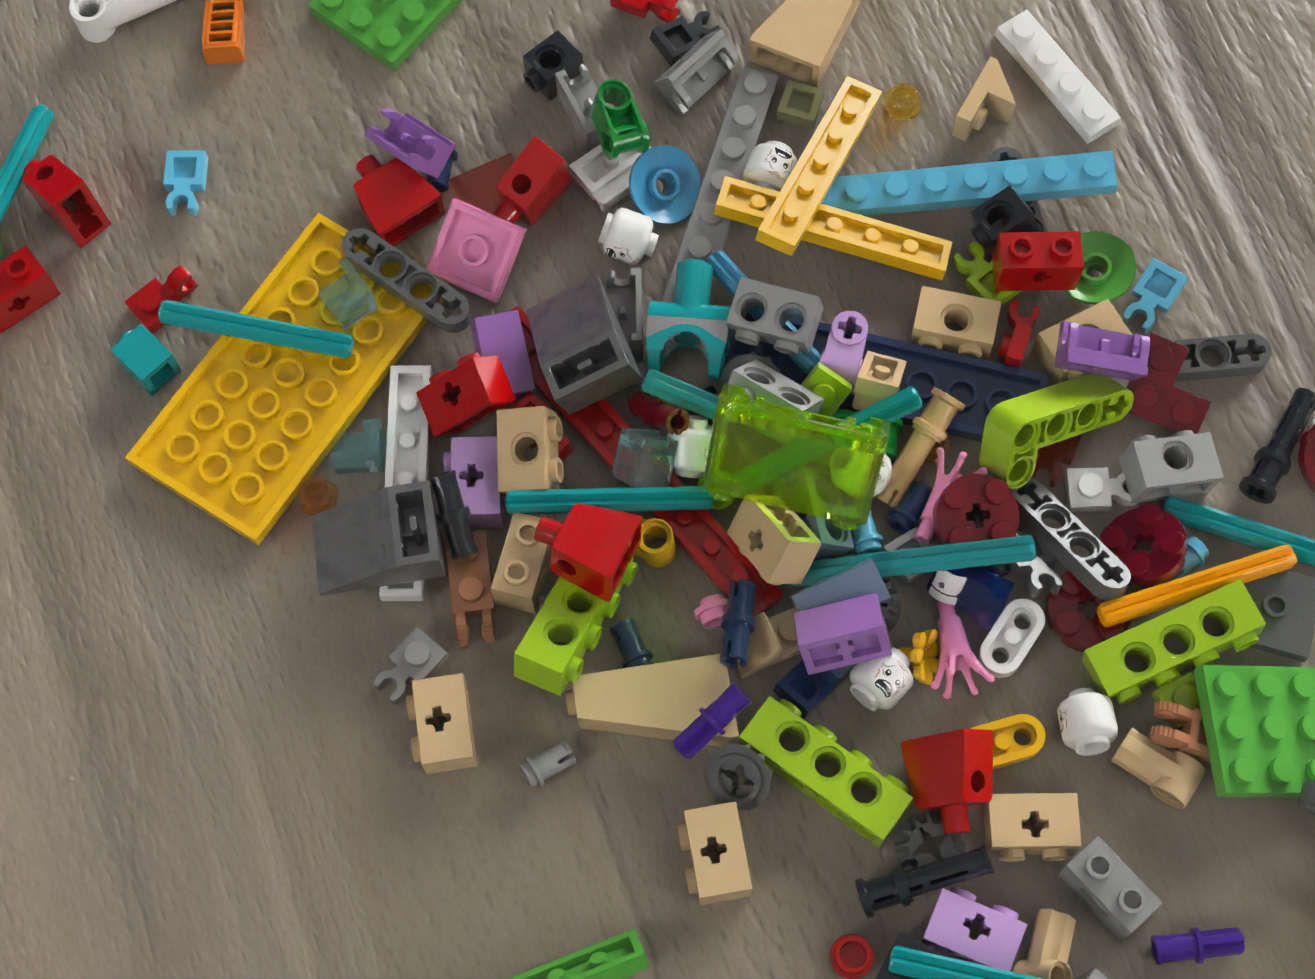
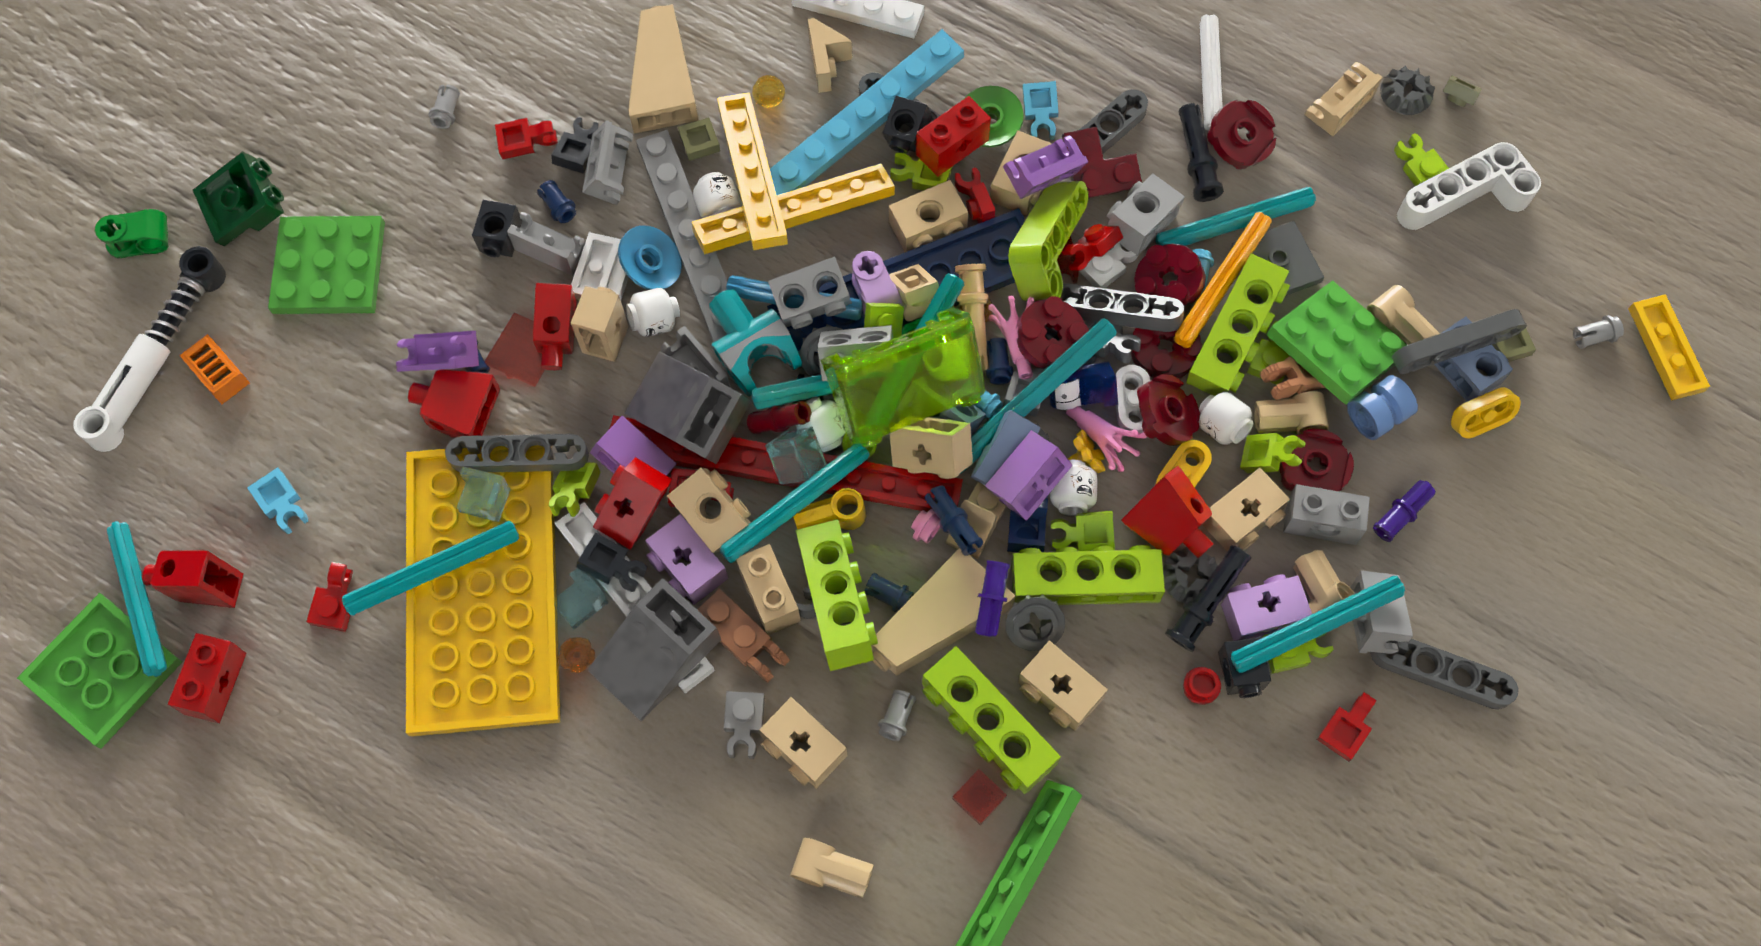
camera: 40 degrees left, 0 degrees up
(145, 359) = (360, 651): teal brick -> none
(373, 846) = (821, 866): none -> tan piece
(403, 431) = (607, 560): none -> black plate
(430, 344) = (572, 486): none -> lime plate
(453, 514) = (695, 590): black pin -> none
(475, 250) = (550, 397): bright pink tile -> none
(559, 895) = (979, 797): none -> clear red plate
(569, 212) = (600, 323): none -> tan brick
(592, 546) = (814, 541): red torso -> none
(619, 126) = (585, 233): green piece -> none
(627, 70) = (561, 207): none -> dark blue pin
(637, 902) = (958, 671): none -> lime brick
(863, 728) = (1090, 531): none -> lime plate
(1014, 669) = (1155, 402): none -> dark red plate
(1099, 460) = (1094, 243): none -> red plate
(1101, 784) = (1268, 451): none -> lime plate
(1145, 809) = (1332, 455): none -> dark red plate
(1262, 828) = (1387, 405): none -> medium blue wheel

